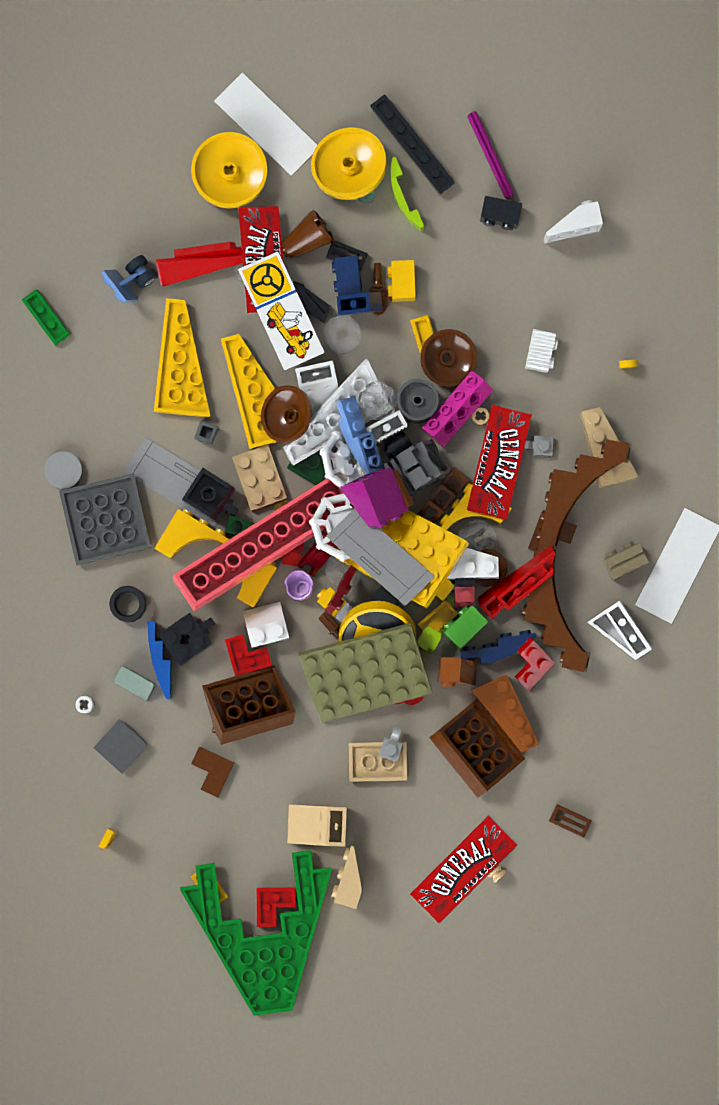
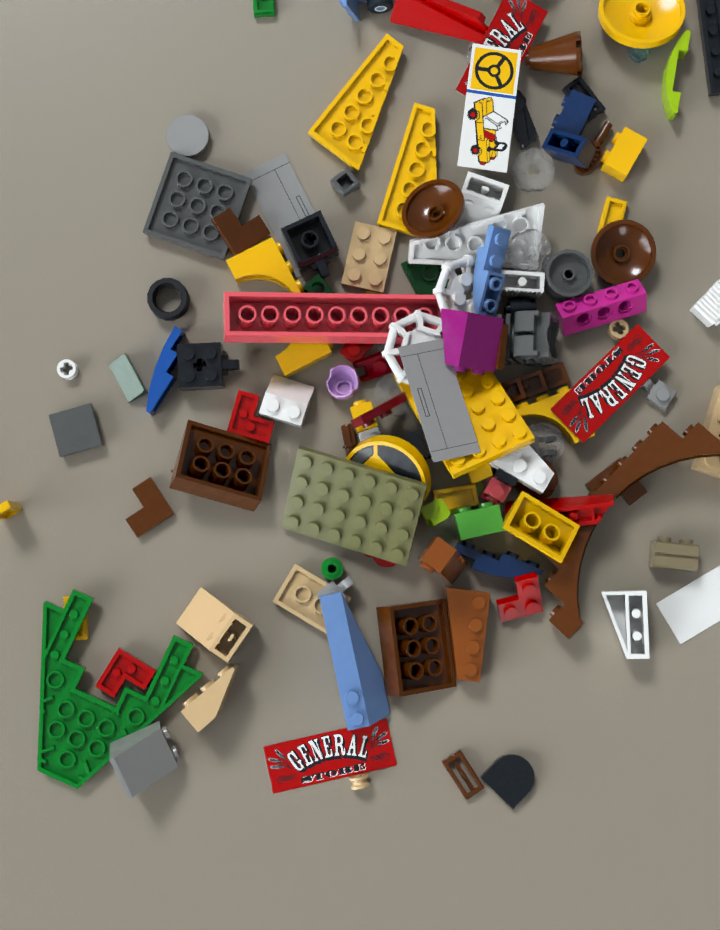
camera: 35 degrees right, 0 degrees up
(152, 523) = (239, 236): none -> reddish brown tile
(327, 954) = (143, 758): none -> light grey slope
(372, 729) = (339, 568): none -> green brick
(443, 792) = (354, 665): none -> medium blue wedge
(512, 602) = (540, 526): none -> yellow slope
(606, 801) = (510, 778): none -> black tile

